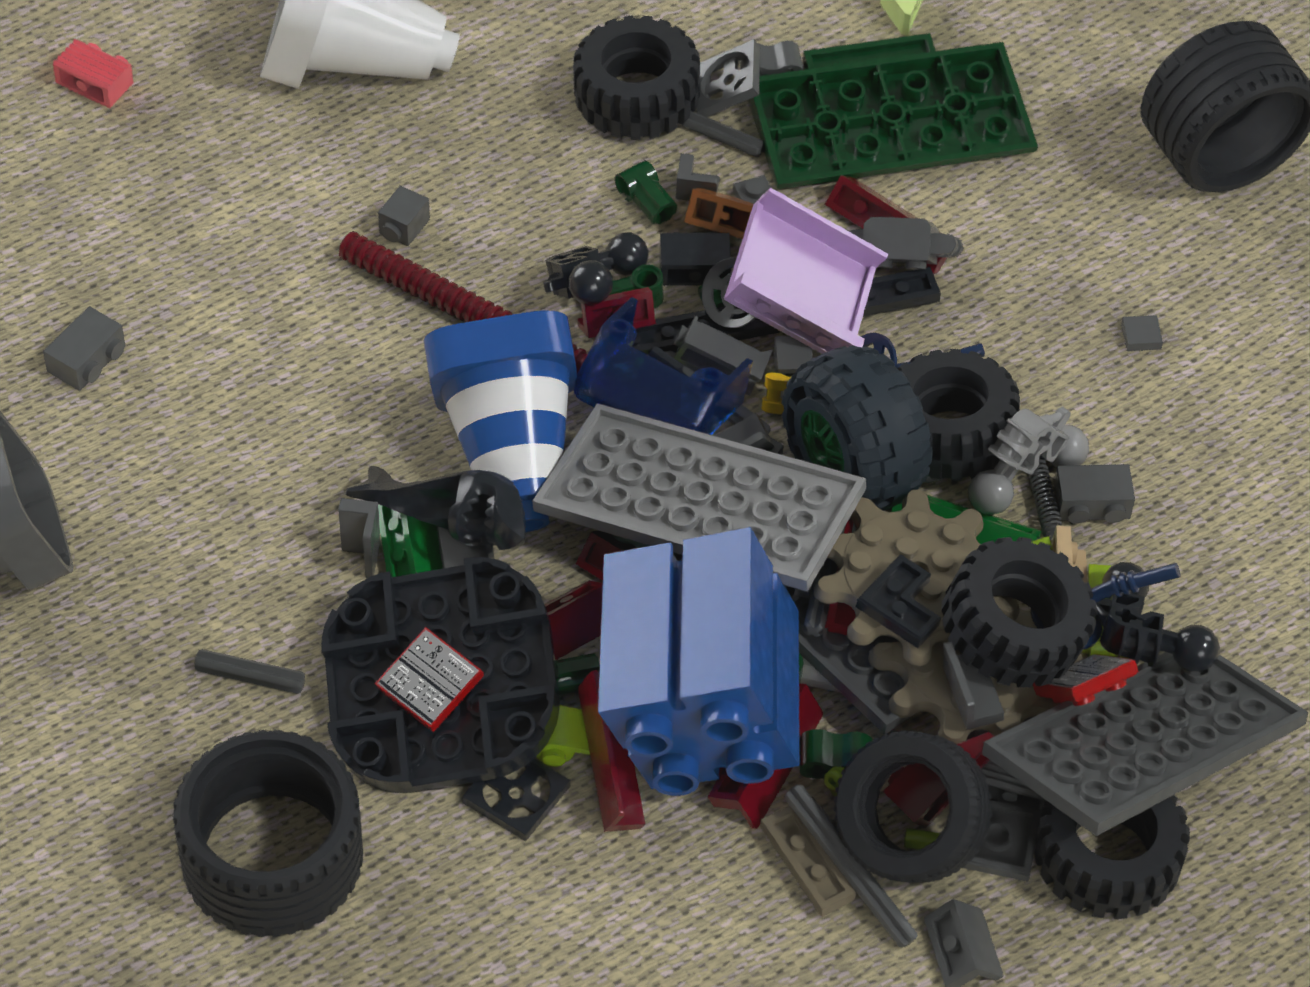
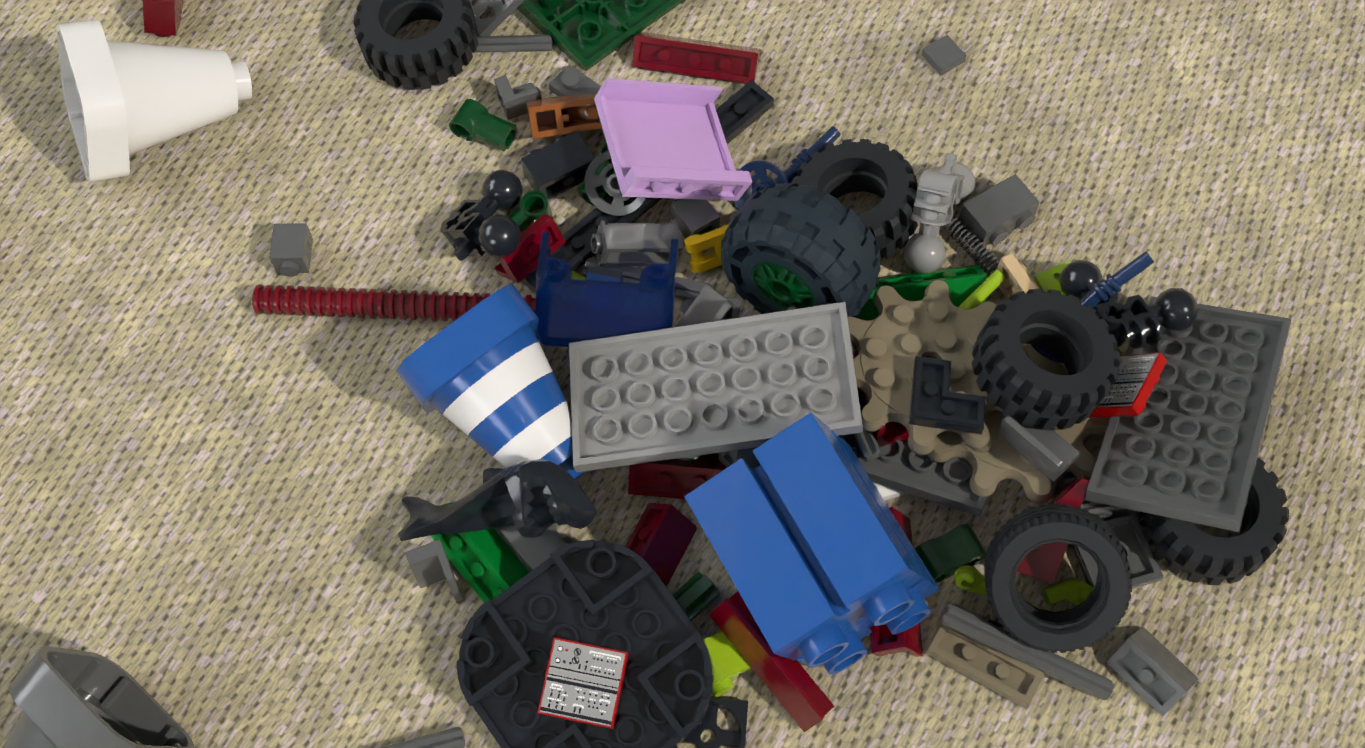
camera: 25 degrees left, 10 degrees up
(84, 348) = (78, 518): dark grey brick -> none
(909, 241) = (724, 67): dark grey hinge -> none

